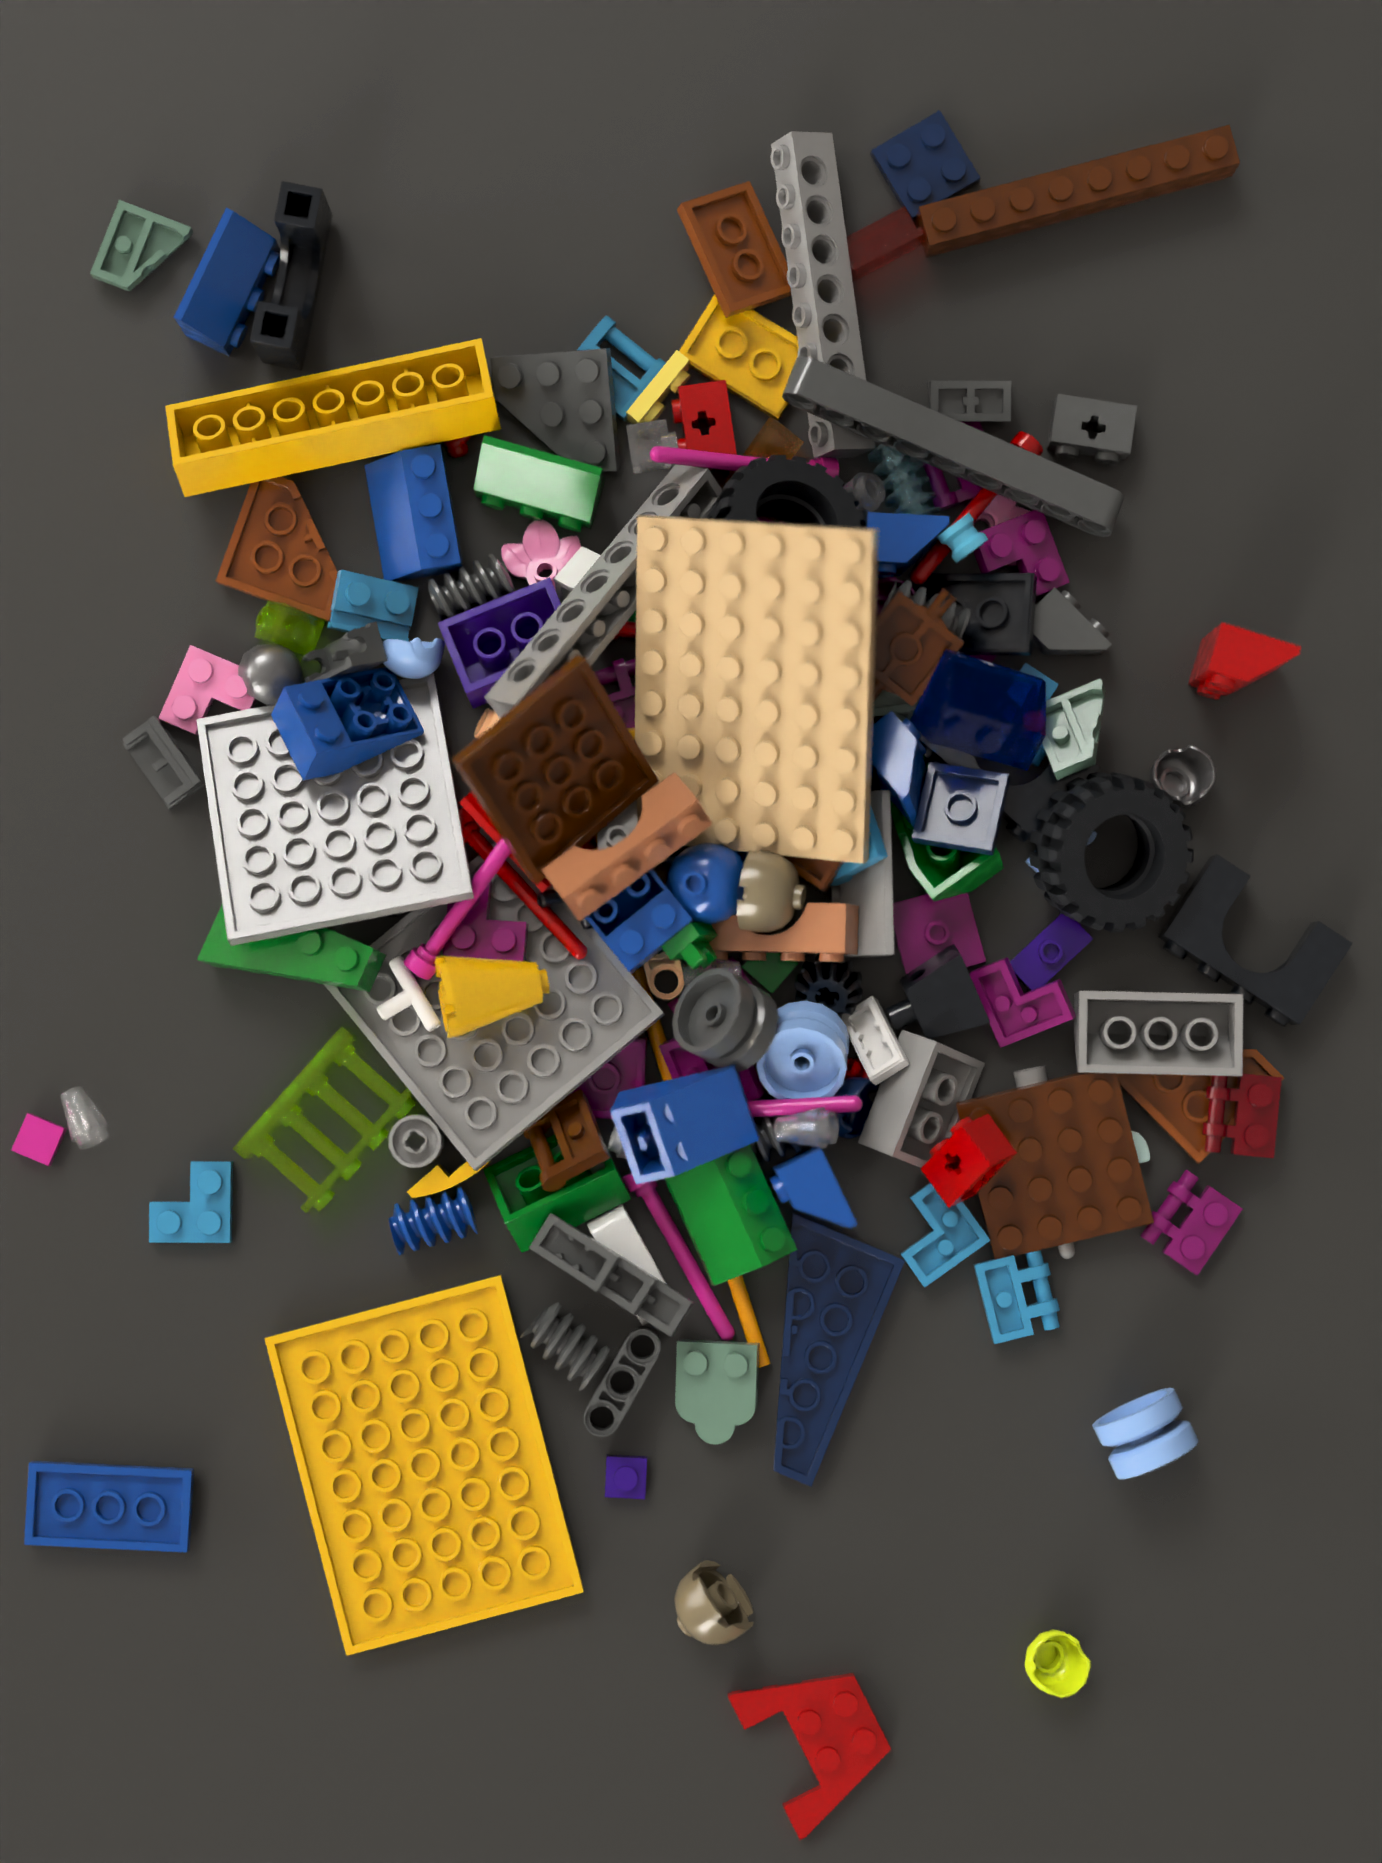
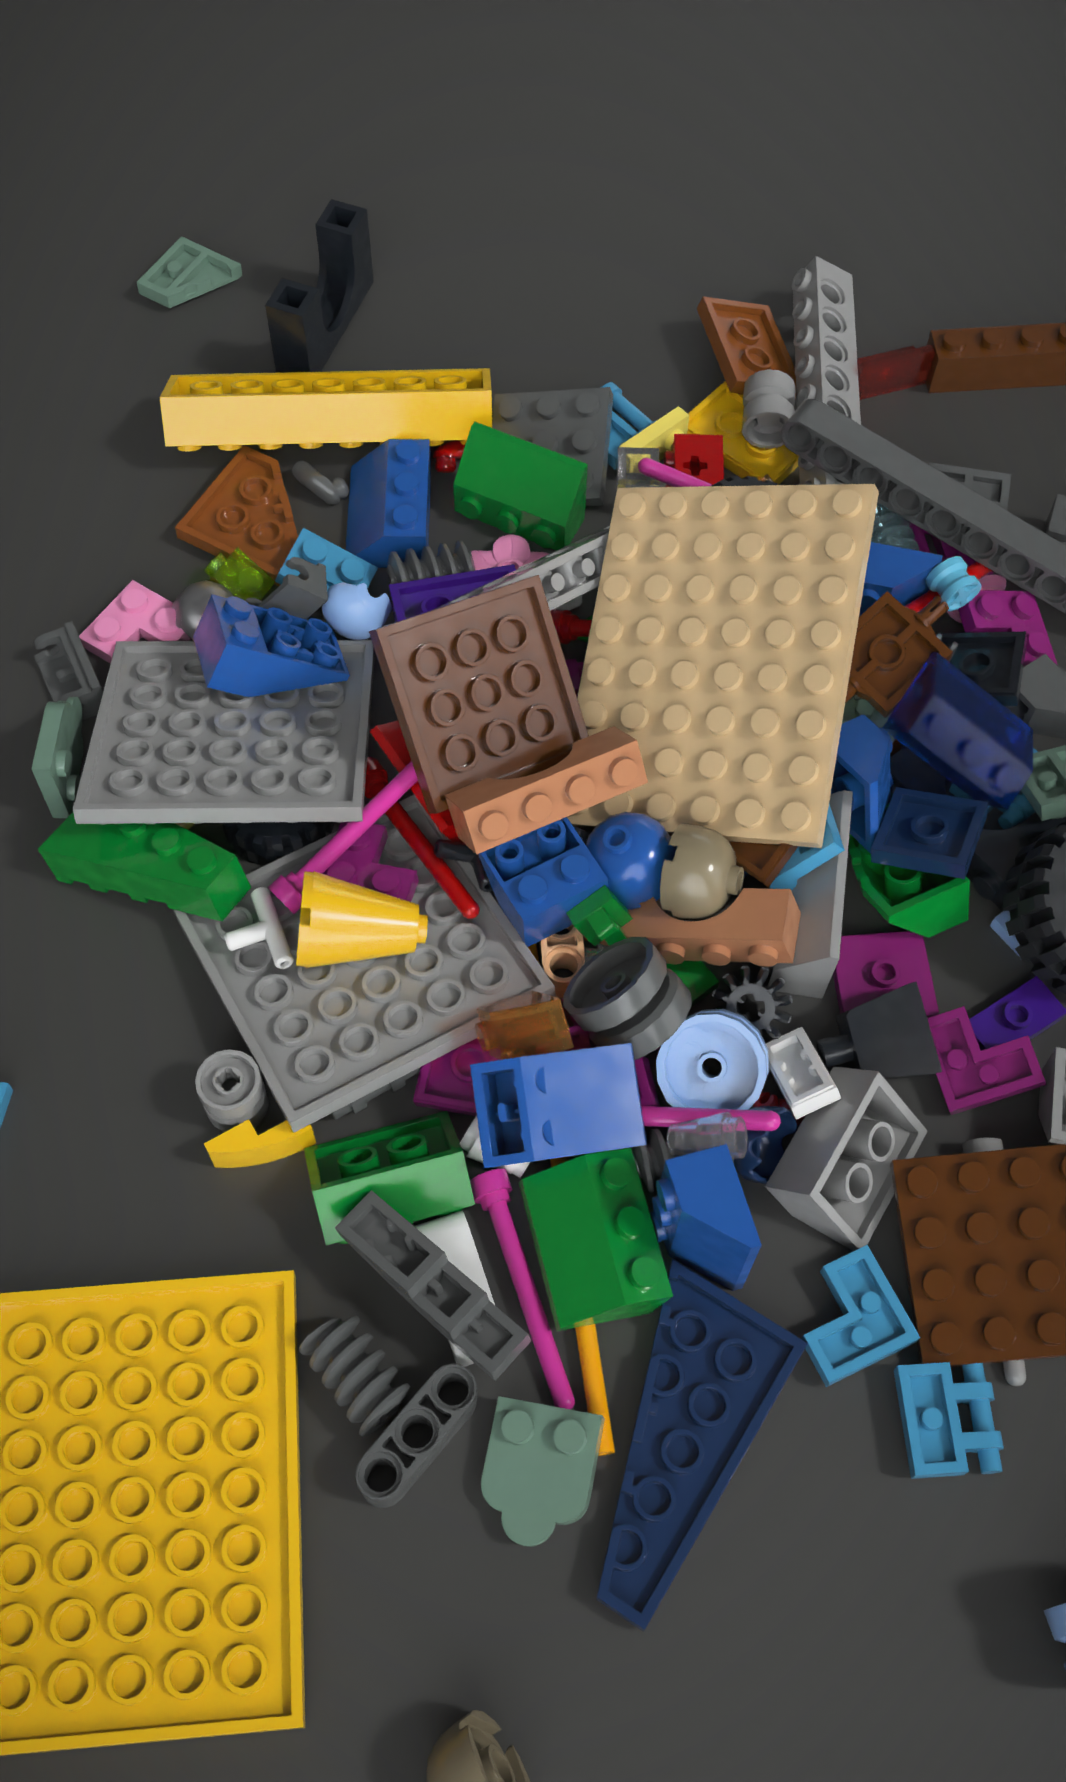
camera: 15 degrees right, 25 degrees down
(188, 876) = (59, 755): none -> sand green plate
(228, 283) = (238, 296): blue slope -> none
(287, 1112) = (89, 1036): clear neon green fence -> none
(336, 497) = (317, 483): none -> dark grey arm
(431, 1220) = (224, 1189): blue piece -> none
(577, 1138) = (424, 1114): reddish brown plate -> none
(625, 1476) = (396, 1572): dark purple plate -> none
(644, 1062) = (523, 1026): none -> clear orange slope
(767, 341) = (767, 407): none -> light grey wheel
(925, 164) = (928, 310): dark blue plate -> none
(967, 1159) = (904, 1219): red brick -> none

